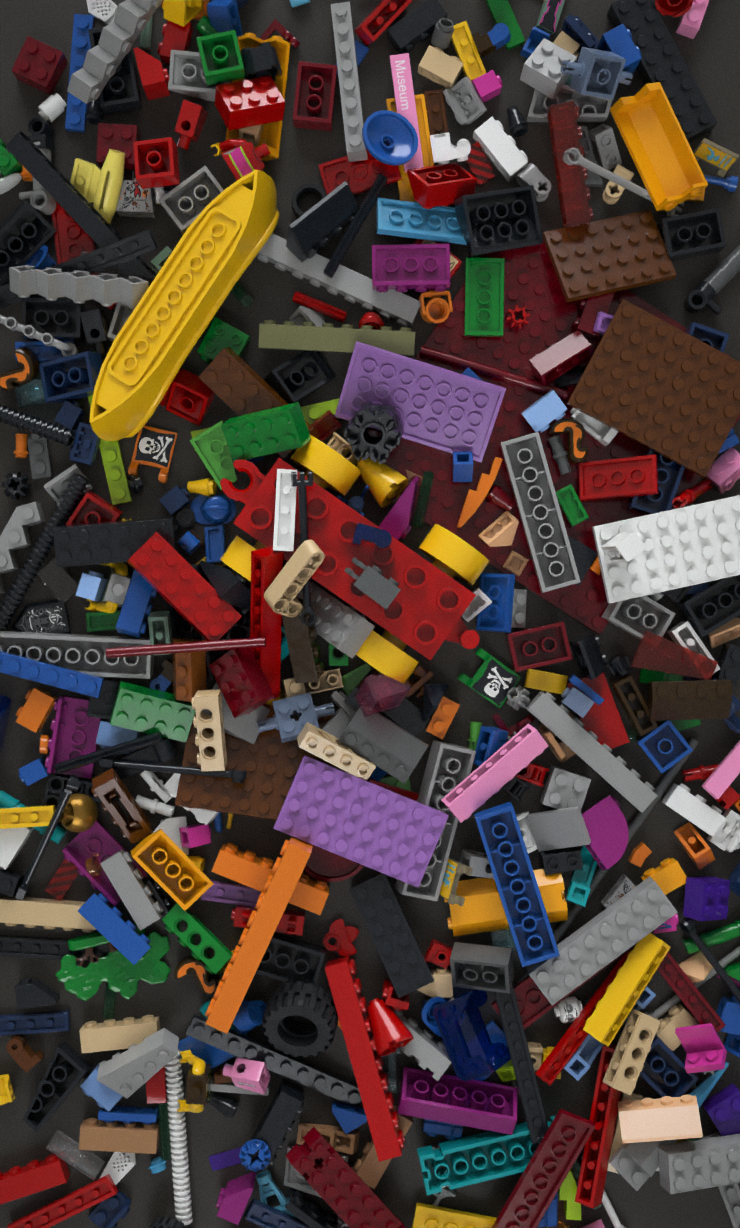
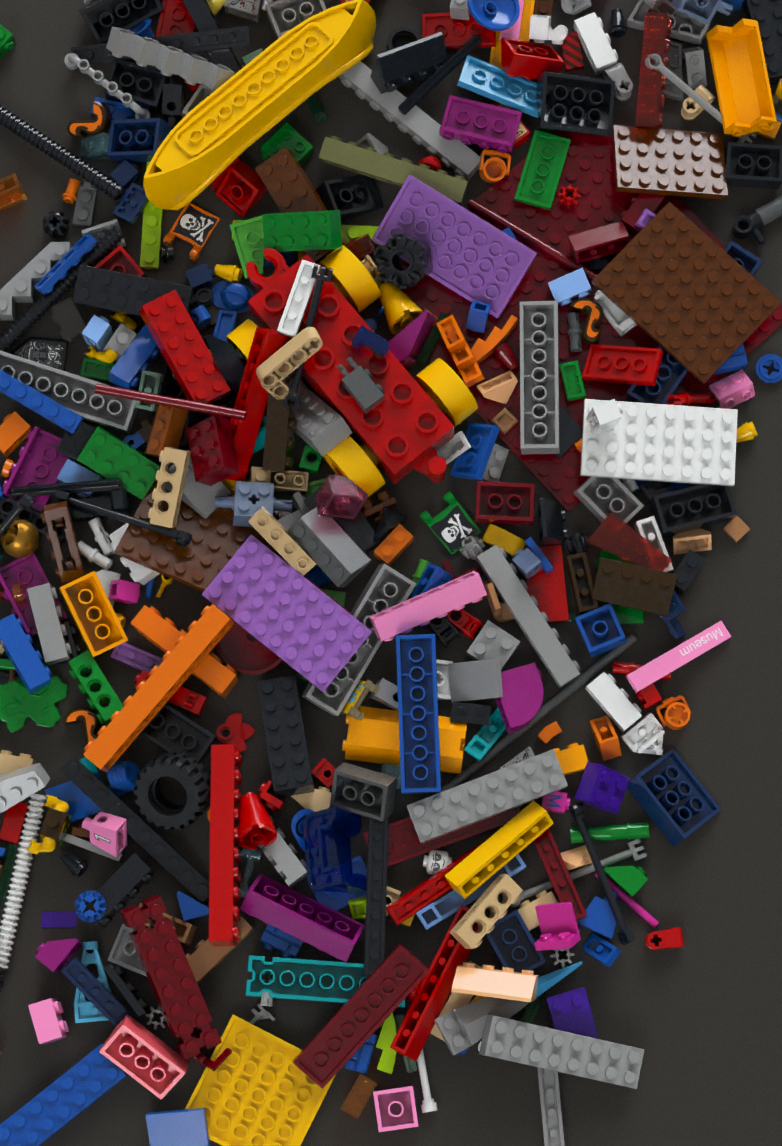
camera: 15 degrees right, 10 degrees down
(35, 532) = (70, 259): none -> blue plate
(319, 306) = (386, 139): red axle -> none
(455, 508) = (460, 351): none -> orange slope

